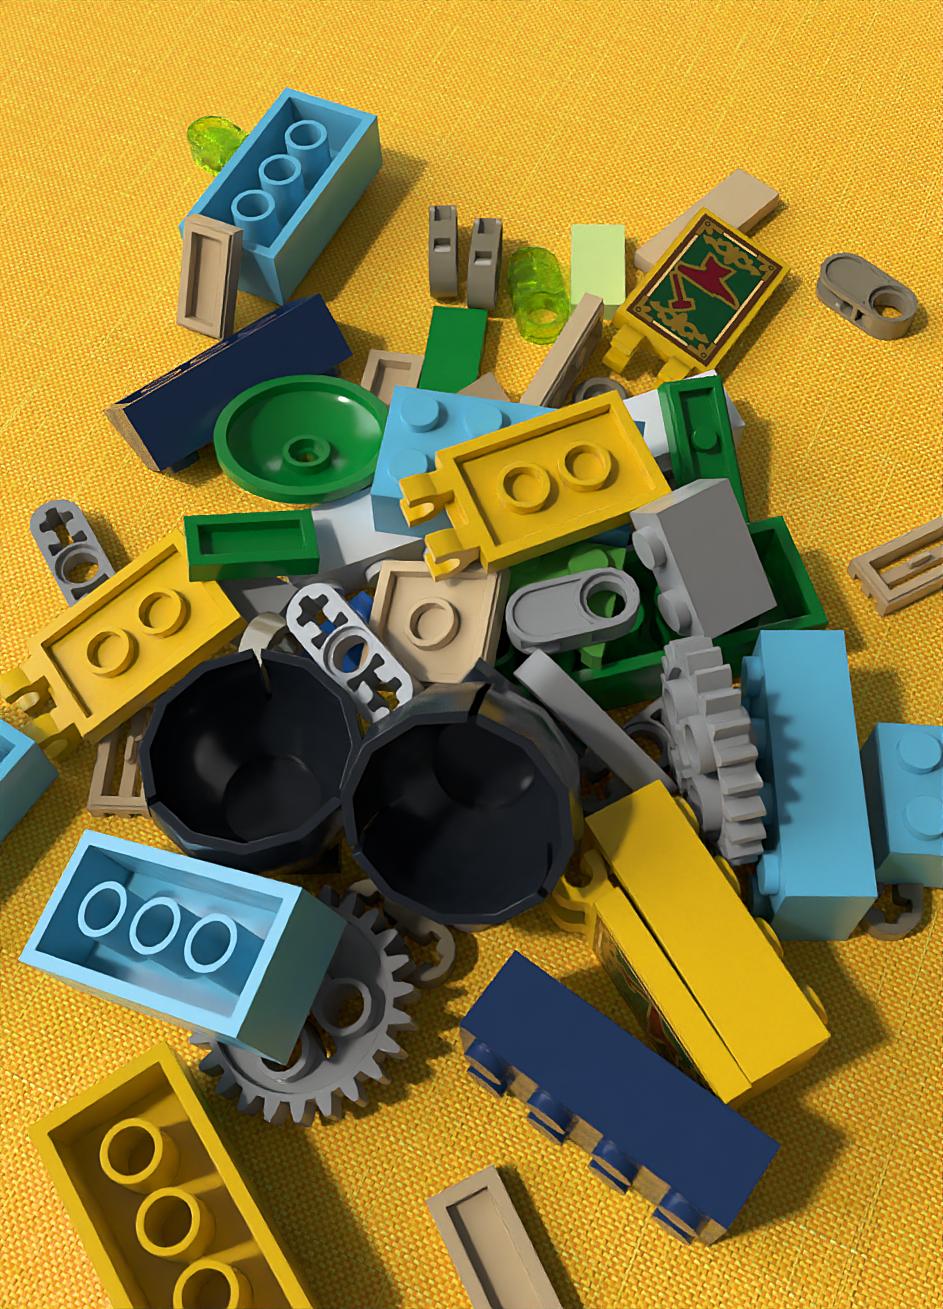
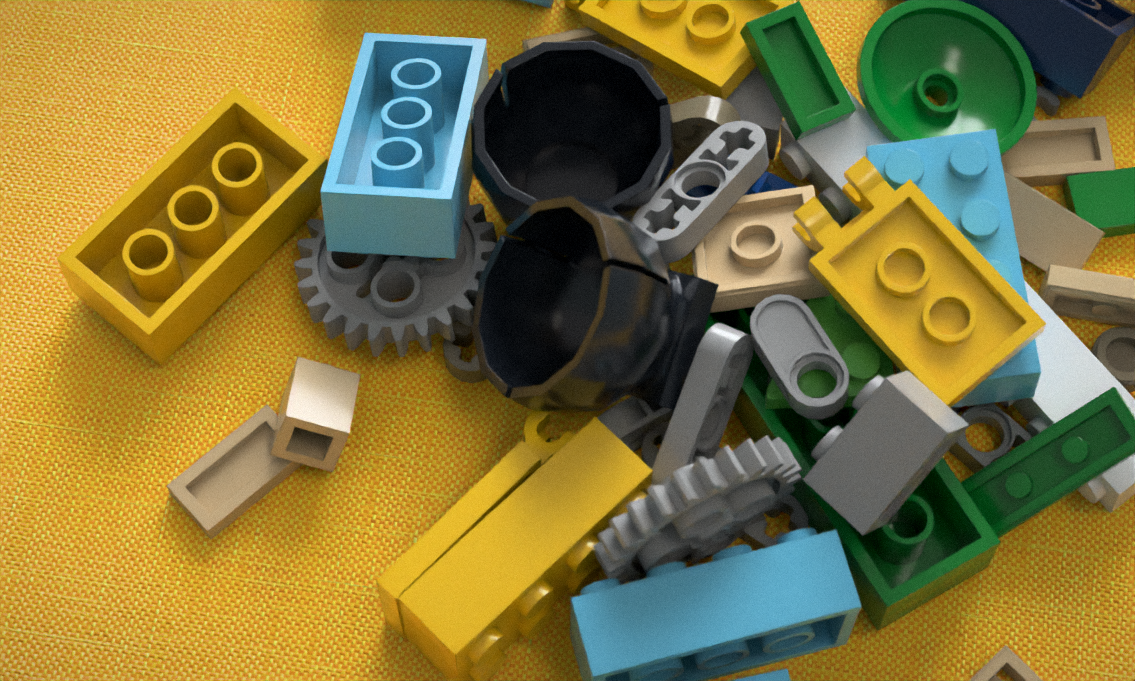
camera: 70 degrees right, 5 degrees up
(464, 1140) = (315, 414): none -> tan brick
(614, 1101) = (371, 513): dark blue brick -> none

